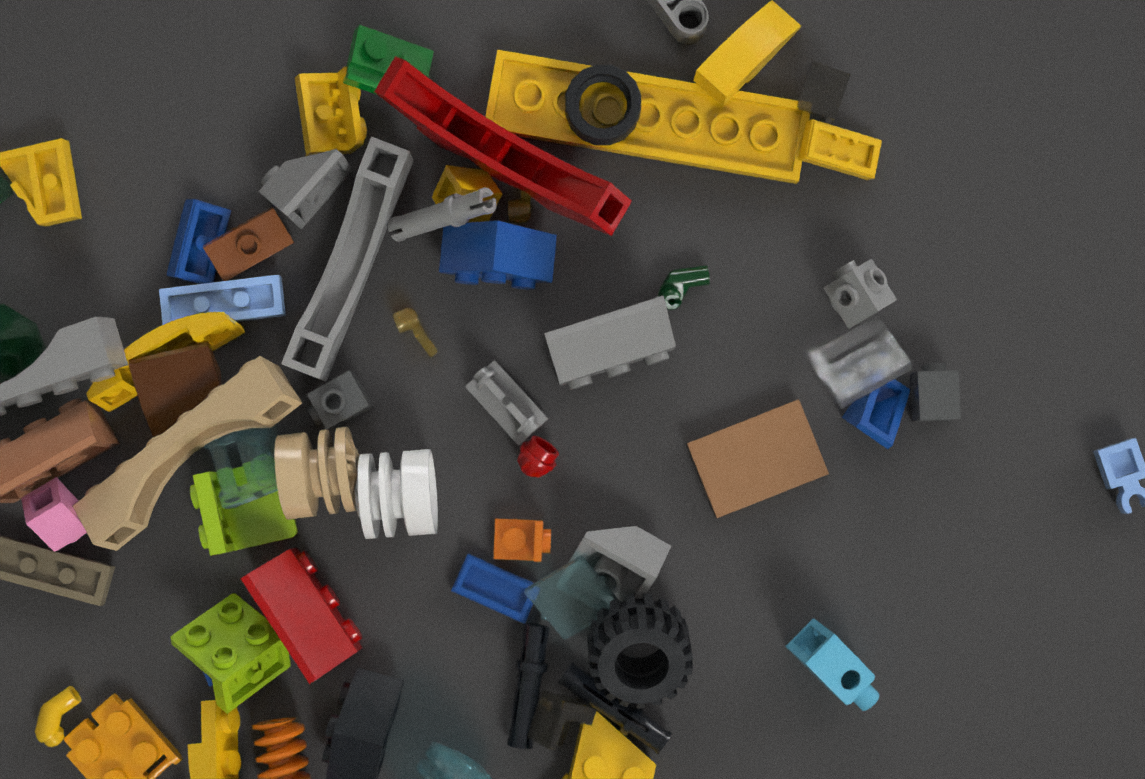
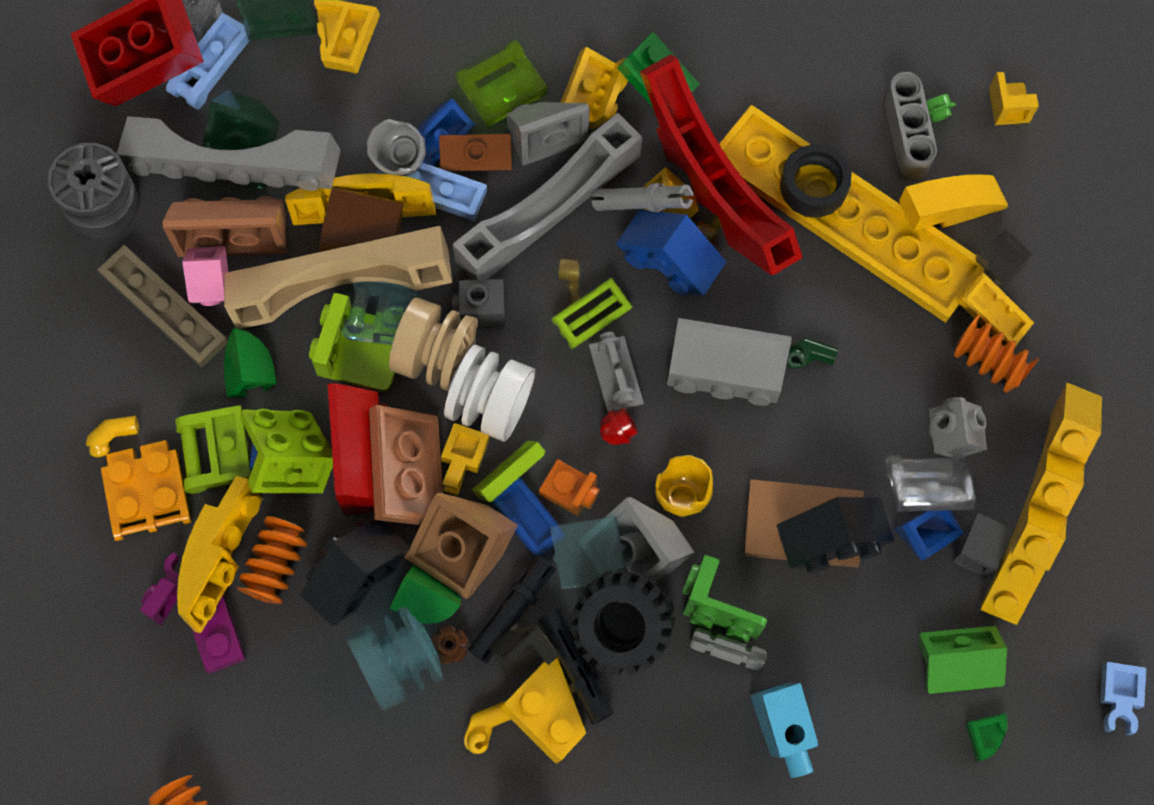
camera: 25 degrees right, 15 degrees down
(147, 580) = (246, 364): none -> green brick
(168, 289) = (396, 147): none -> light grey hair
(173, 673) = (226, 448): none -> lime plate
(245, 157) = (506, 92): none -> clear neon green plate
(357, 605) = (404, 463): none -> nougat tile
(402, 558) = (463, 452): none -> yellow plate
(437, 346) = (566, 331): none -> lime tile
(443, 715) = (426, 597): none -> green brick
(448, 649) = (460, 542): none -> medium nougat slope
(455, 556) = (509, 471): none -> lime tile
(496, 741) = (457, 651): none -> reddish brown plate
(629, 485) = (684, 486): none -> yellow hair
(692, 580) = (708, 611): none -> bright green bracket
(746, 617) = (728, 649): none -> light grey axle
(797, 465) = (835, 530): none -> black brick
(860, 197) = (994, 355): none -> orange piece
(964, 512) = (963, 659): none -> bright green panel
(983, 320) = (1043, 520): none -> yellow arch
(1018, 572) = (987, 735): none -> green tile

